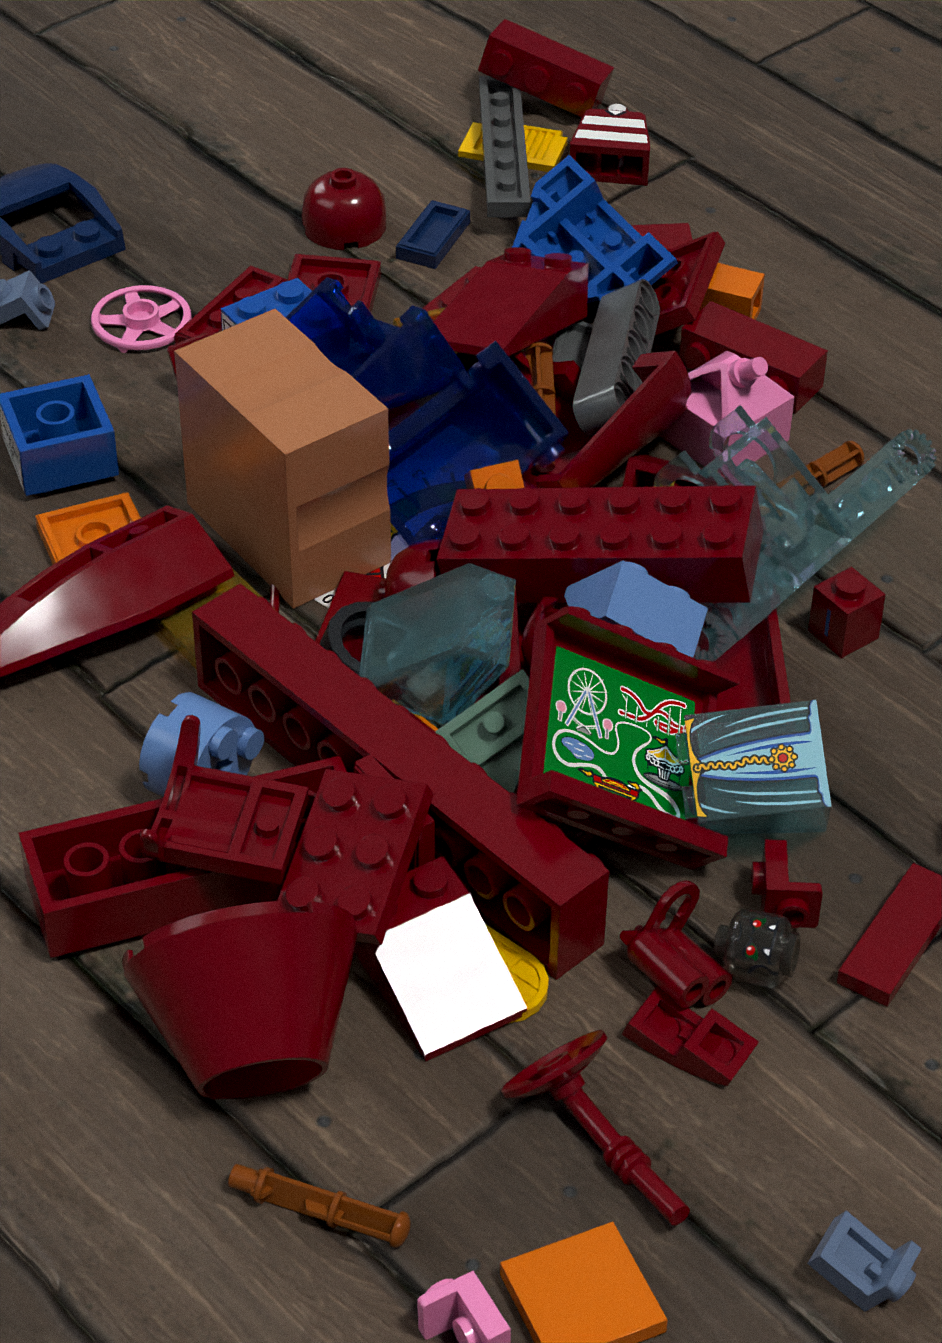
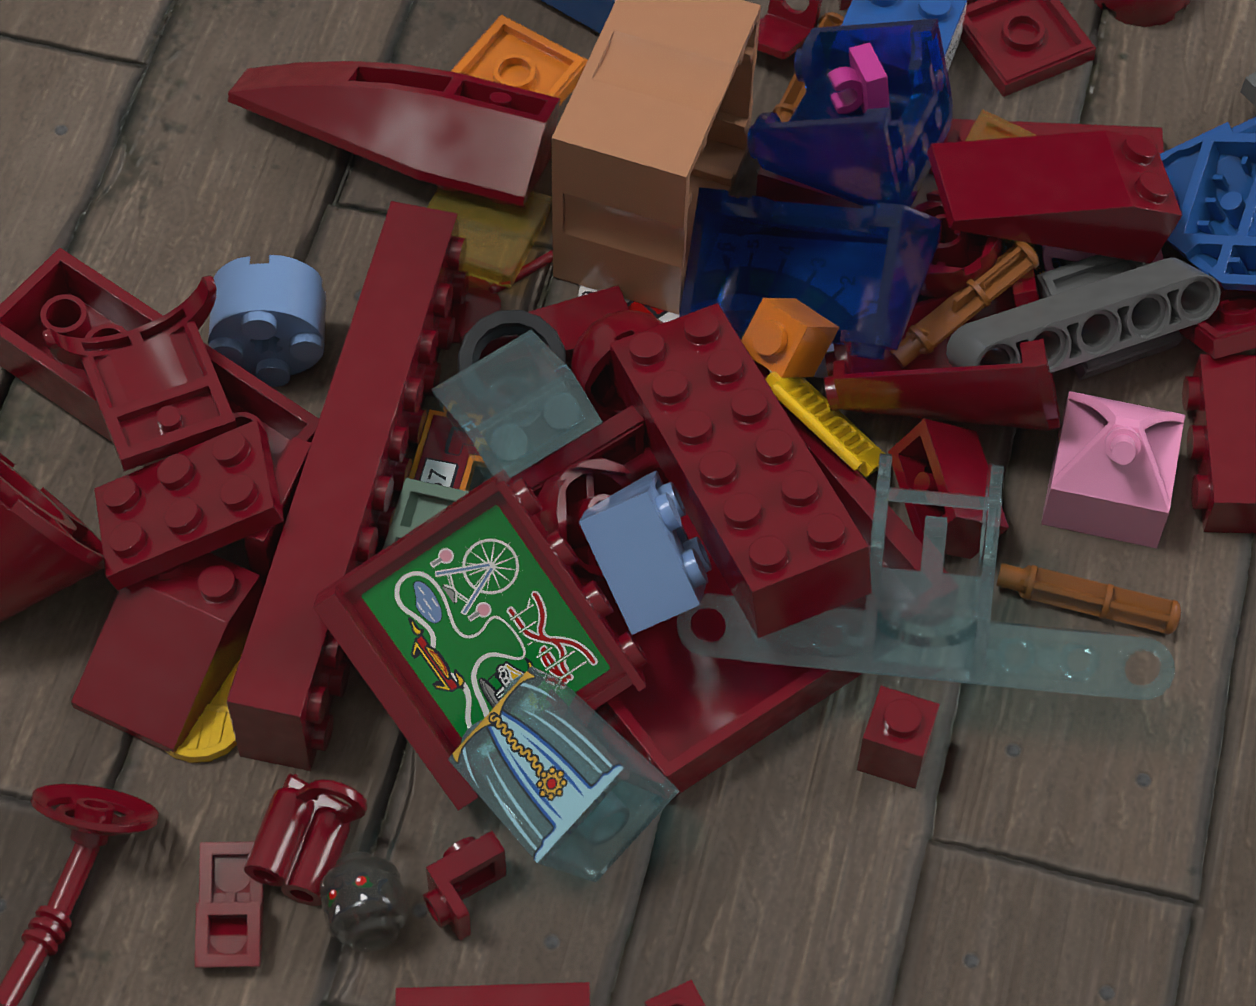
camera: 55 degrees right, 15 degrees up
(334, 342) = (863, 82): none -> dark pink tile
(433, 234) = (1187, 64): dark blue tile -> none

